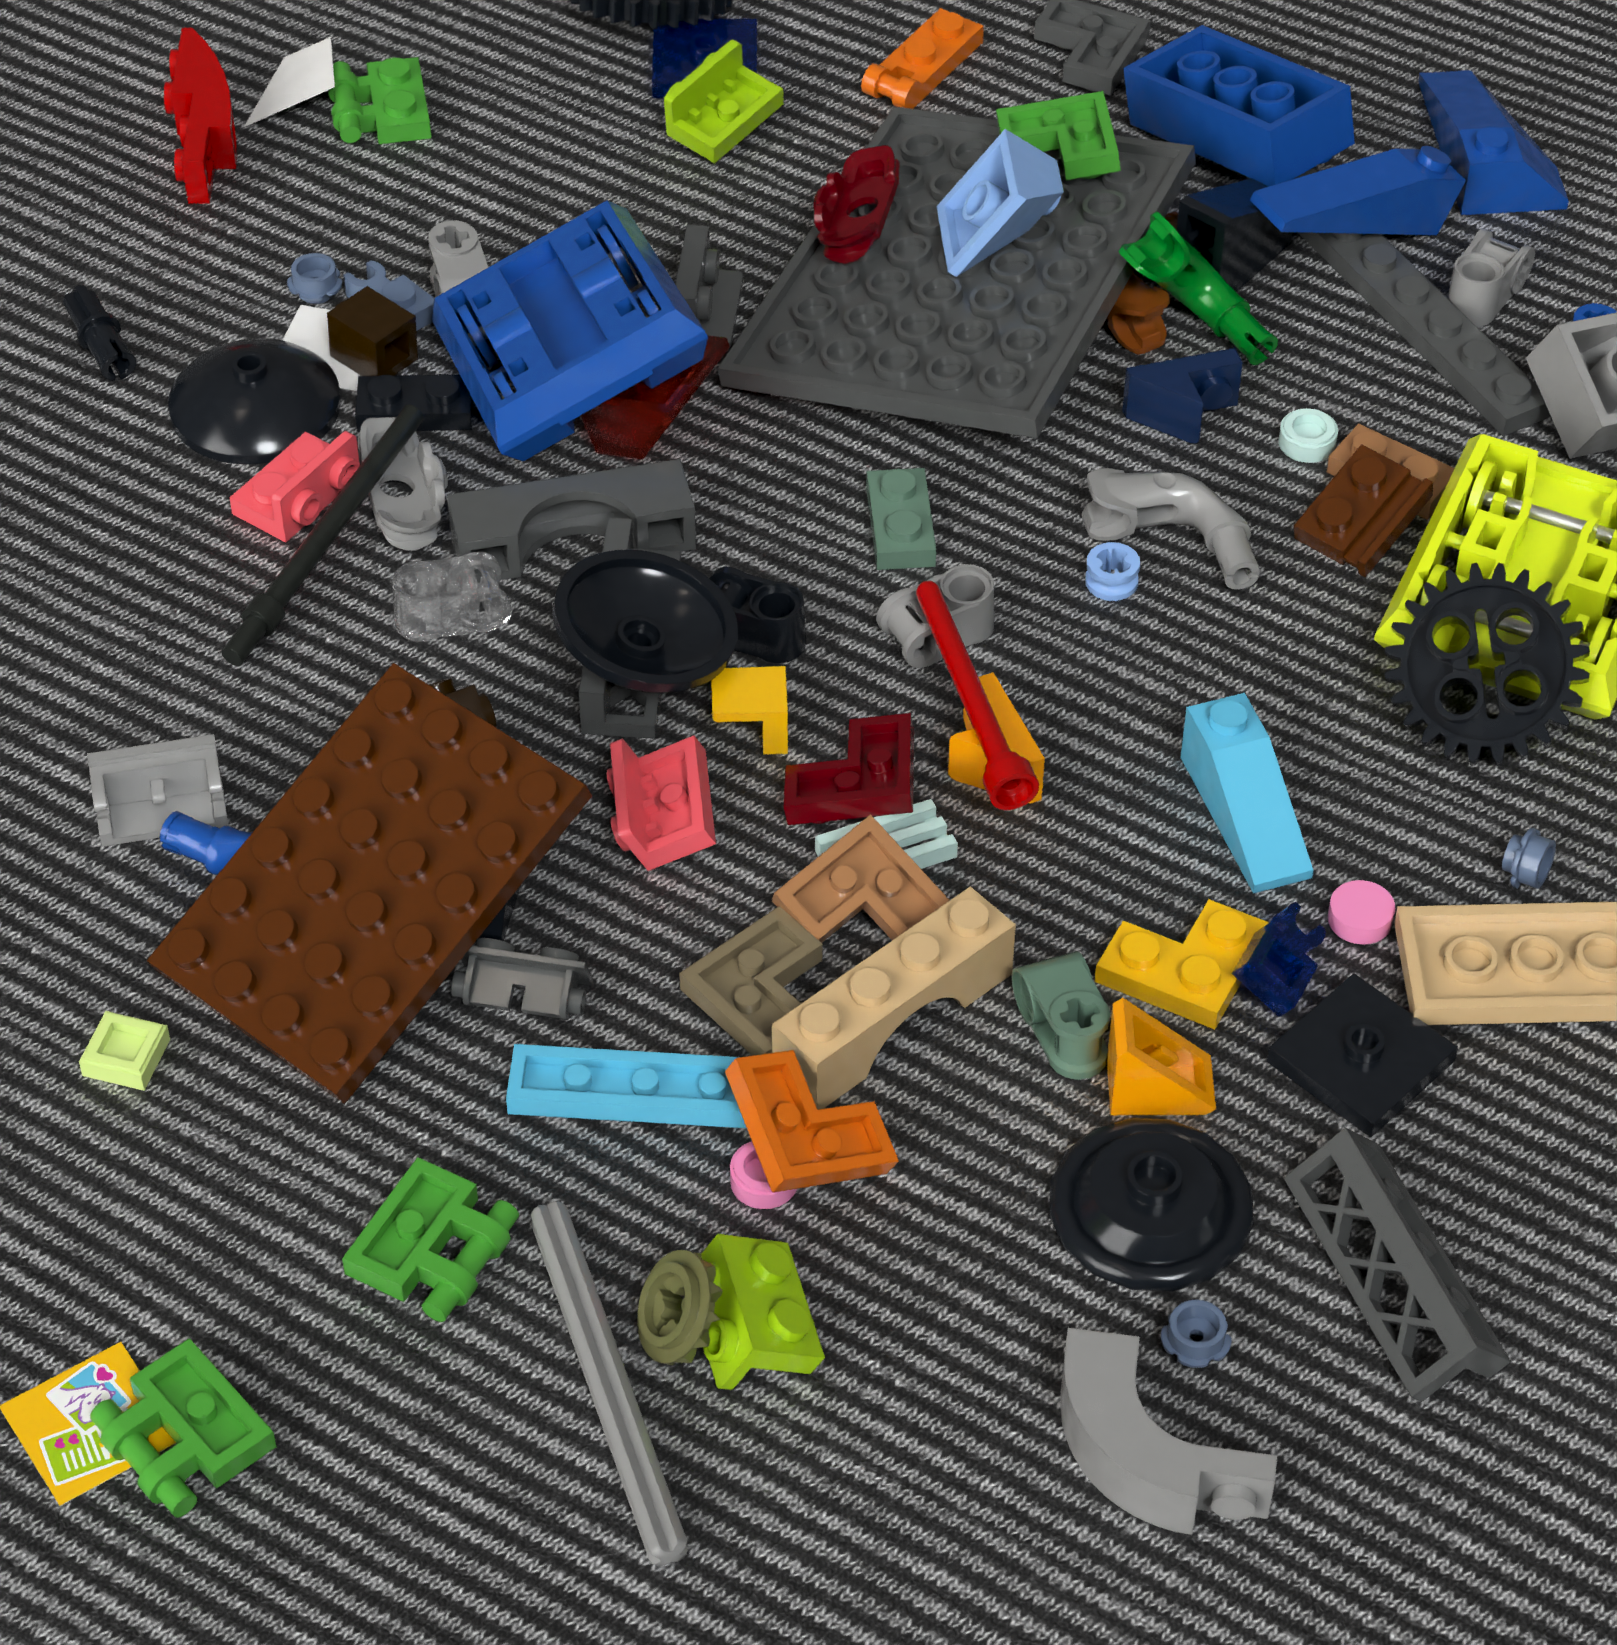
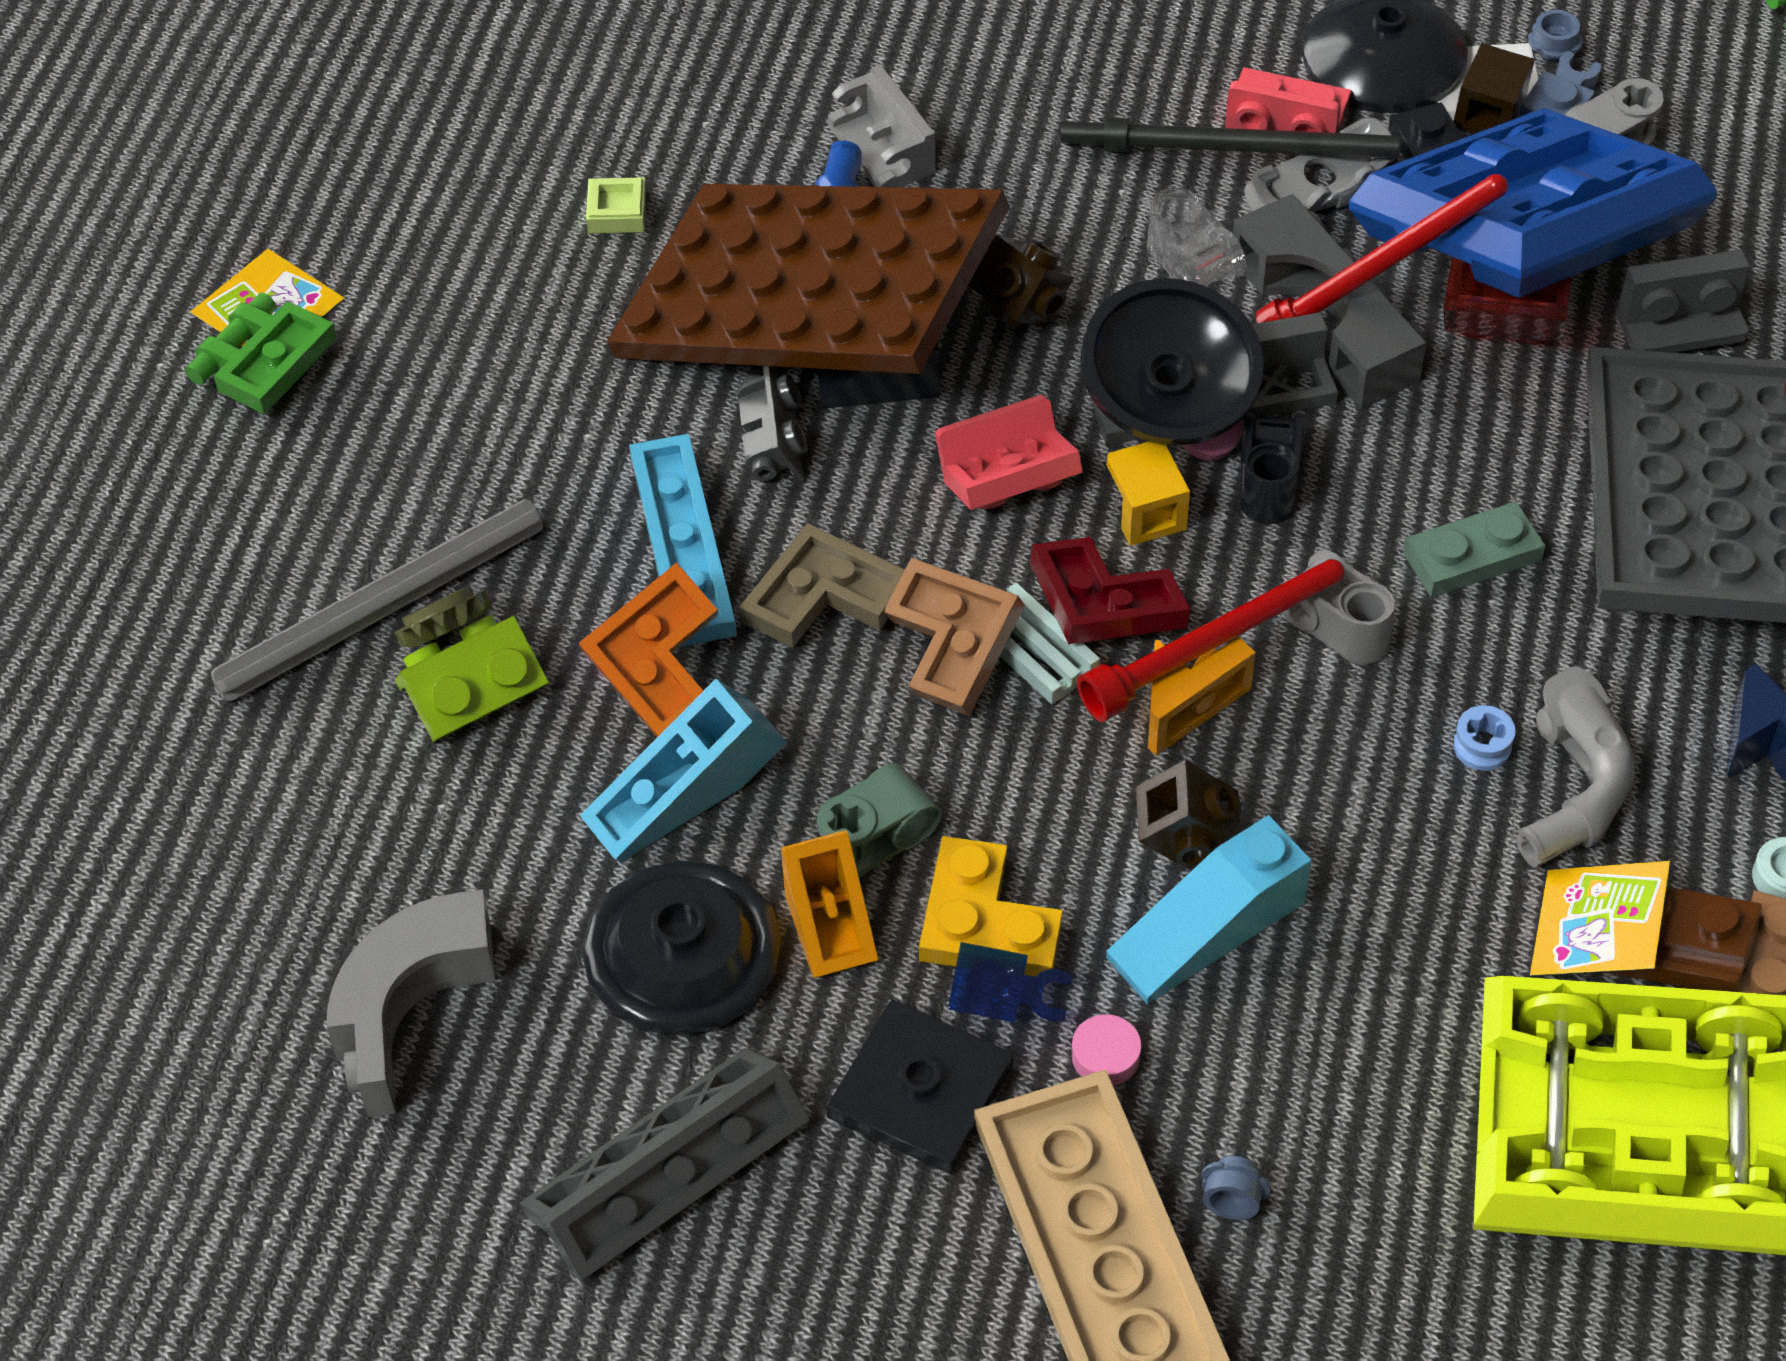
camera: 75 degrees right, 5 degrees up
(412, 1229) = (480, 429): bright green plate -> none
(600, 435) = (1389, 253): none -> red piece
(948, 954) = (890, 705): tan arch -> none
(956, 1146) = (684, 771): none -> medium azure slope
(1126, 773) = (1186, 813): none -> dark brown brick
(1198, 1319) = (532, 996): sand blue plate -> none
(1331, 551) = (1600, 918): none -> sticker
(1542, 657) = (1458, 1075): black gear -> none

